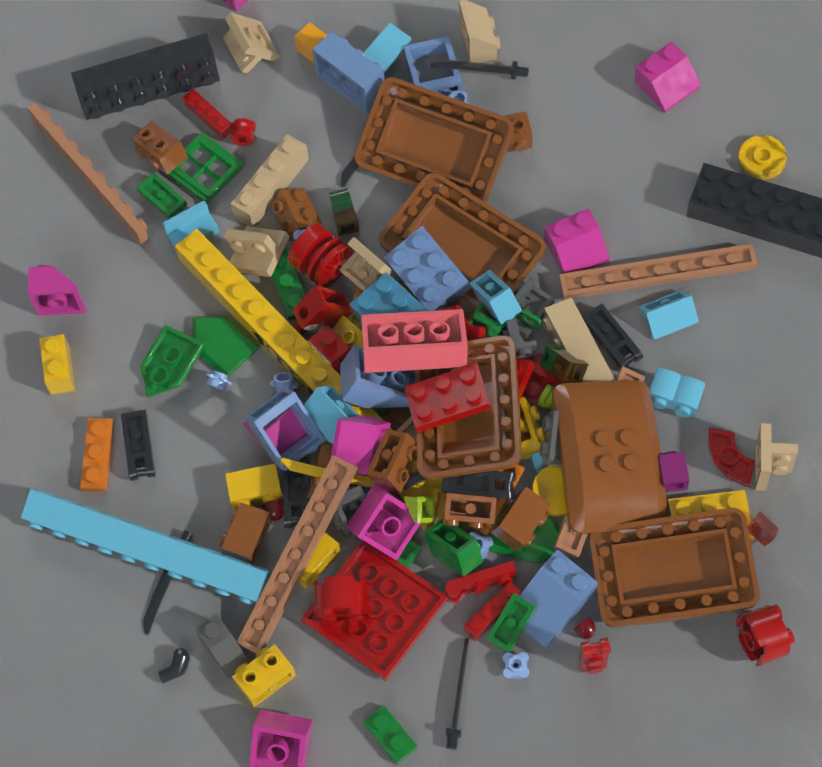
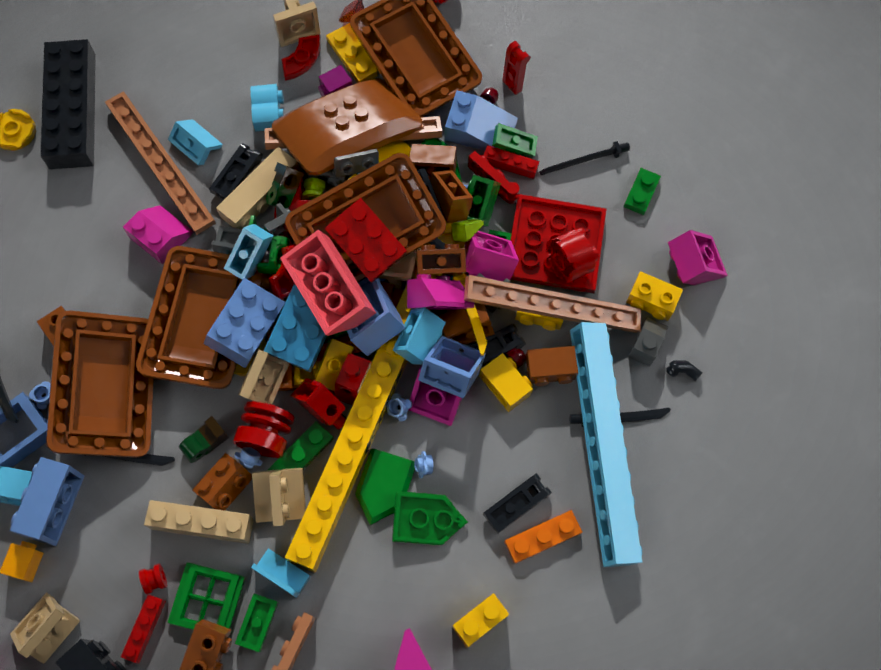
camera: 125 degrees left, 5 degrees up
(512, 672) = (543, 135): light blue plate -> none

